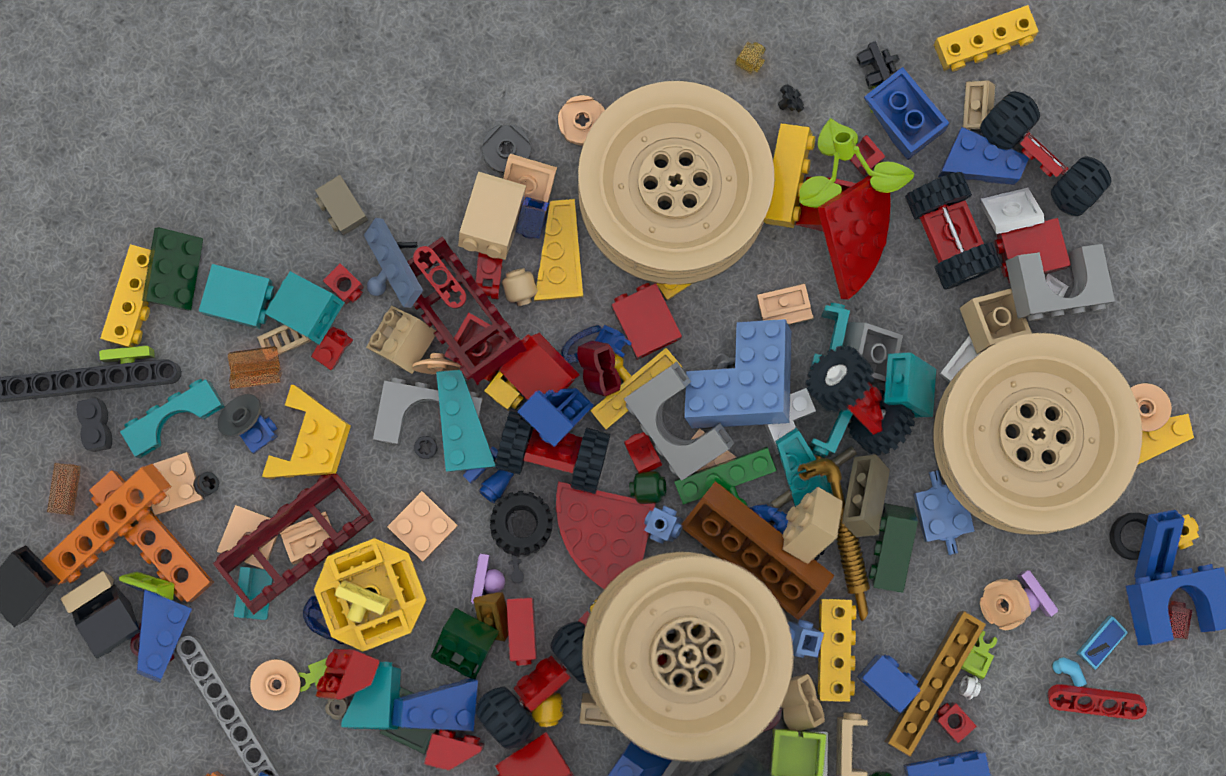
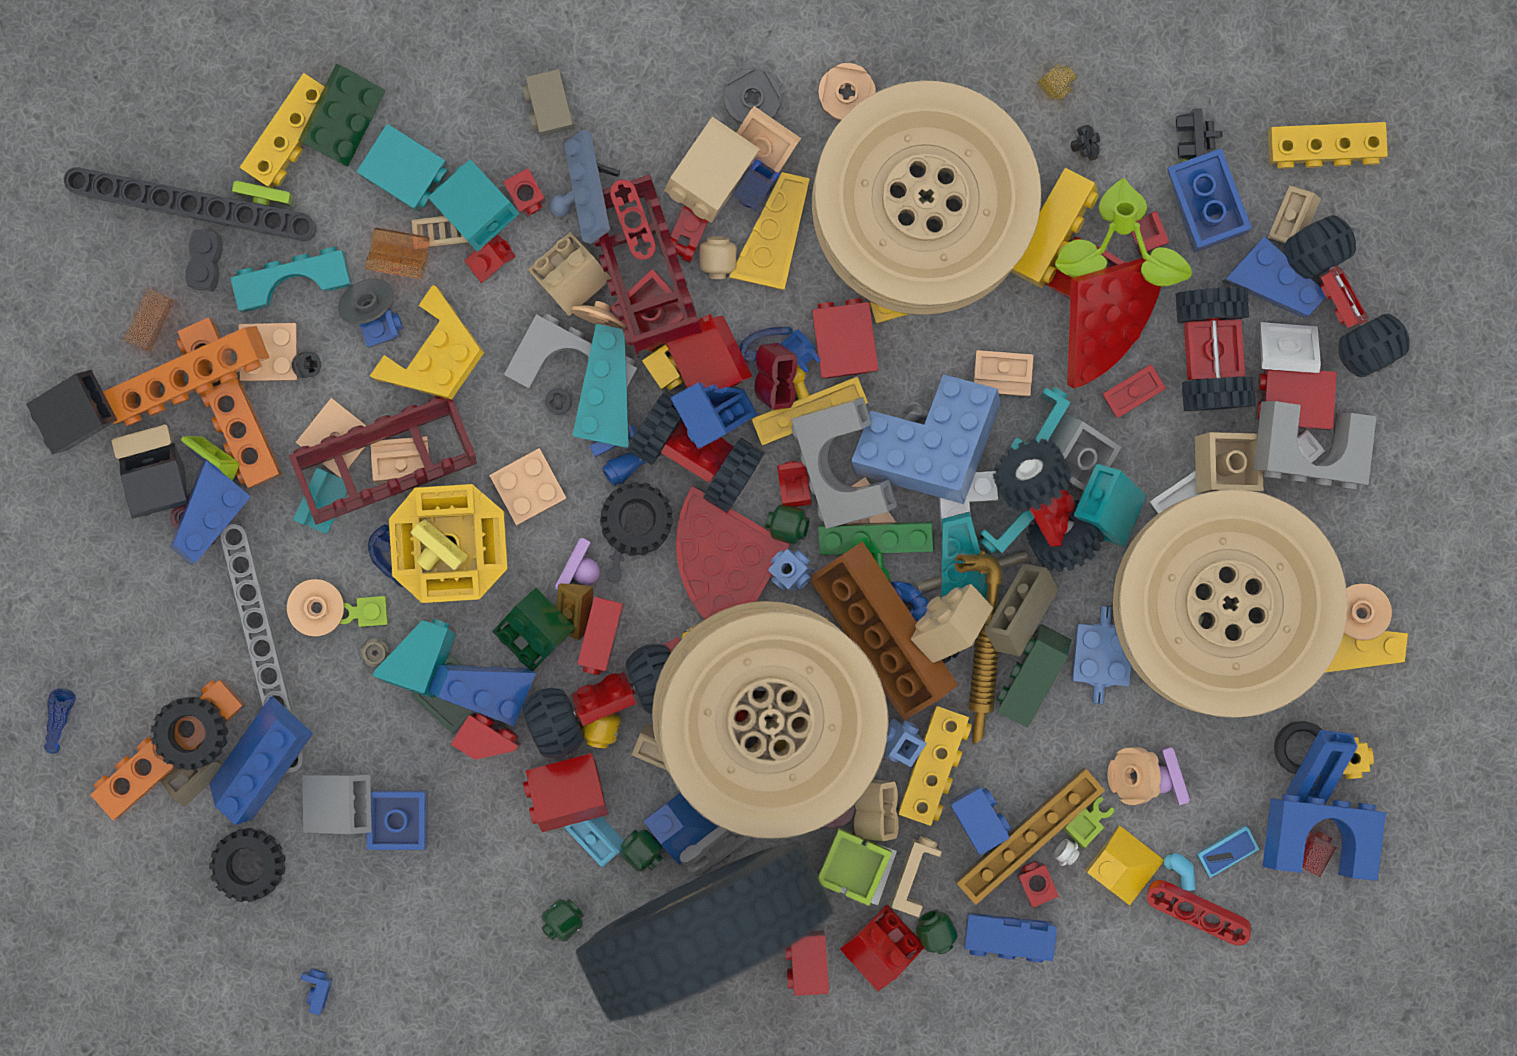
camera: 20 degrees right, 5 degrees up
(346, 674) = (395, 621): red slope -> none
(896, 287) = (1133, 391): none -> red plate
(1020, 682) = (1124, 865): none -> yellow slope

